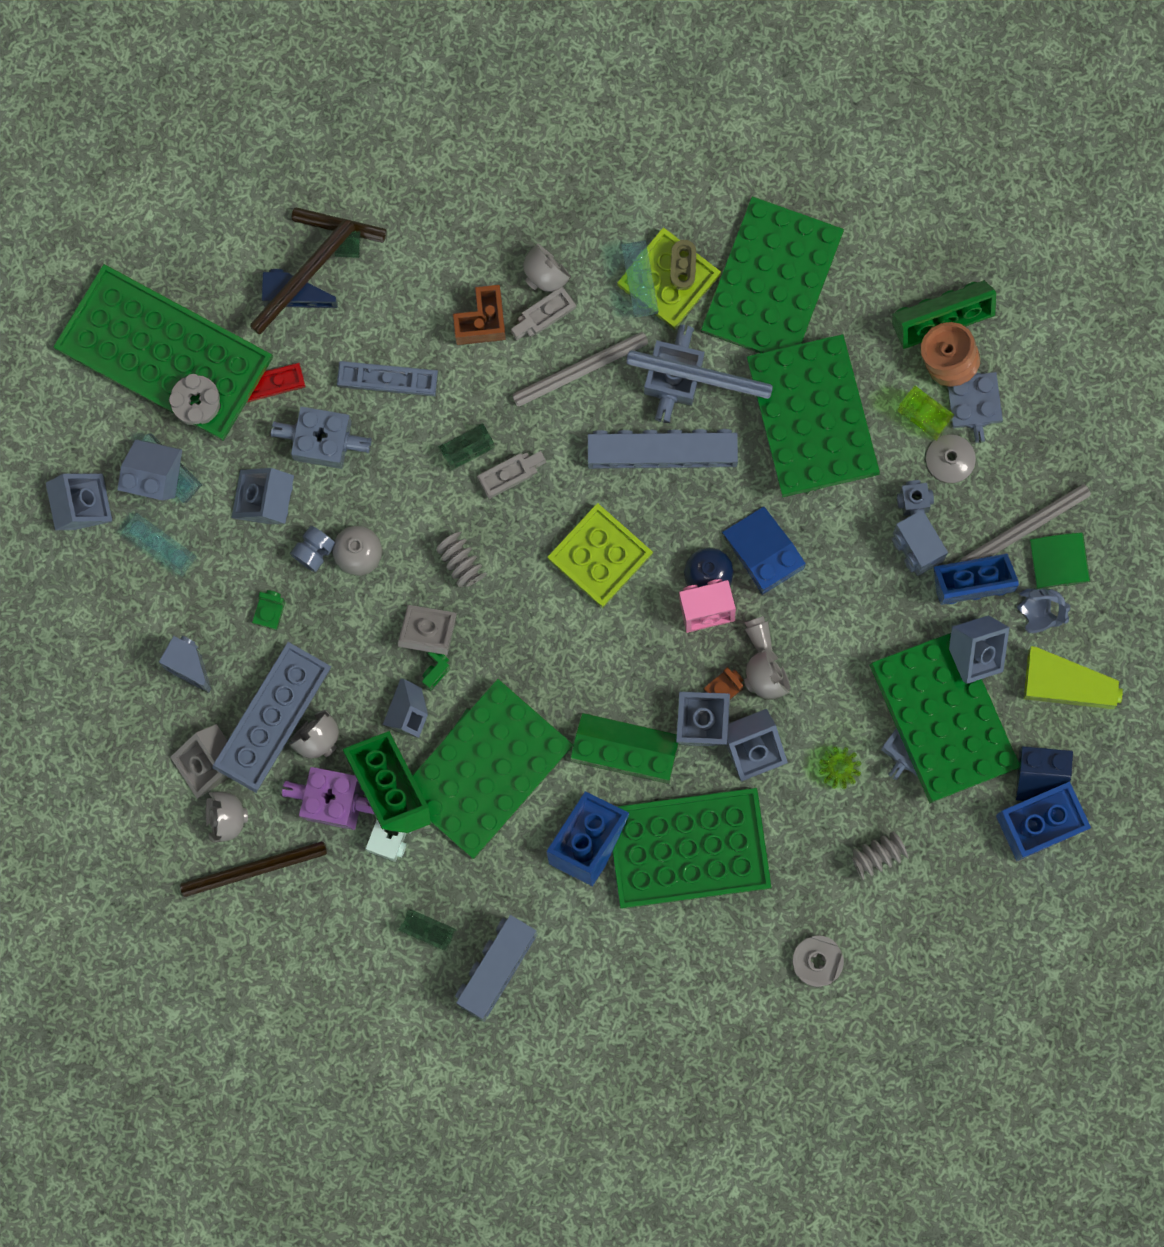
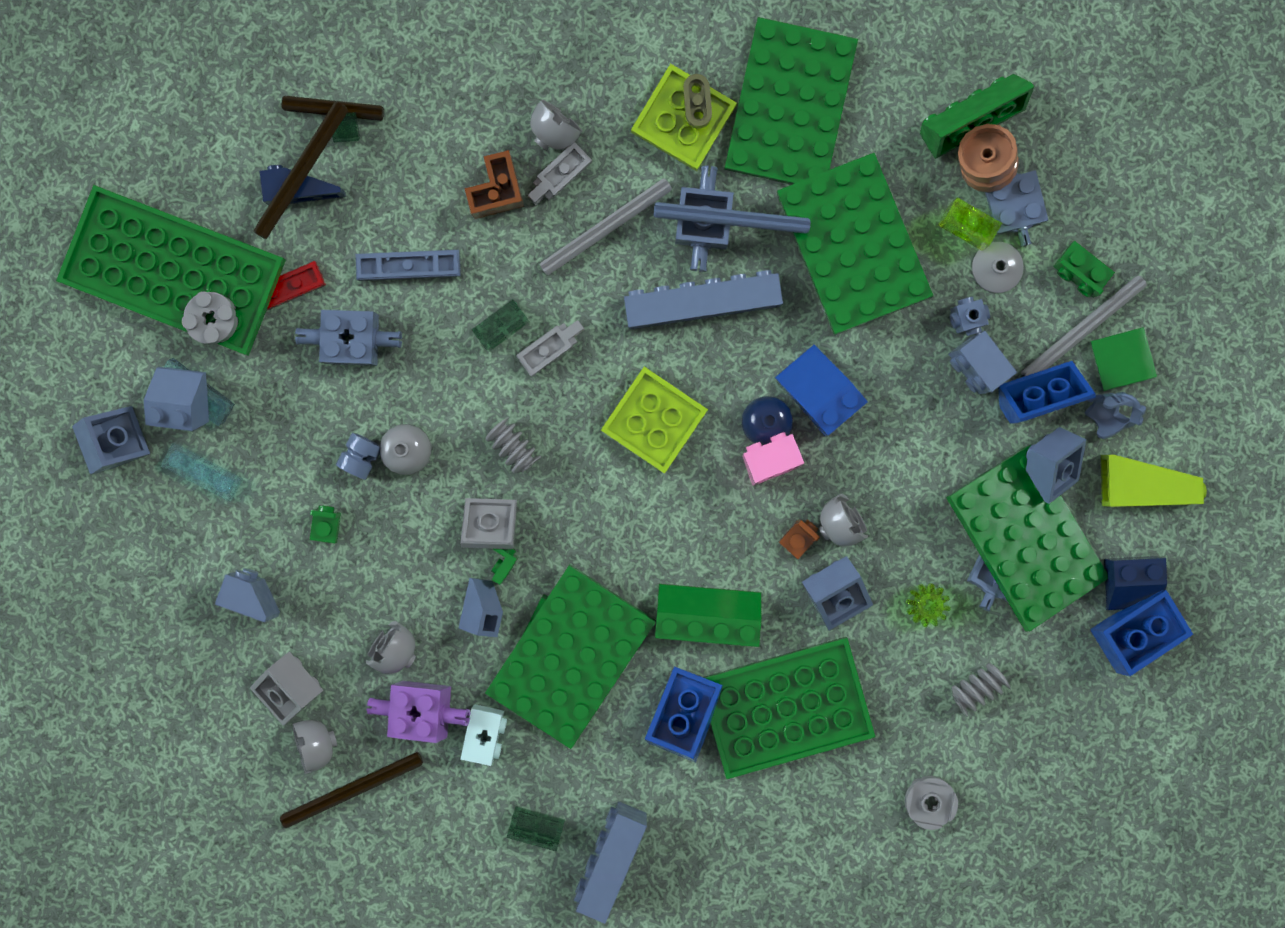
camera: 15 degrees left, 10 degrees up
(263, 496) = (299, 407): sand blue slope -> none
(271, 717) = (343, 639): sand blue plate -> none
(388, 784) = (471, 696): green slope -> none
(639, 278) = (654, 122): clear light blue plate -> none
(703, 719) = (785, 578): sand blue slope -> none
(759, 633) = (827, 478): light grey cone -> none
(1031, 472) = (1083, 270): none -> green bracket

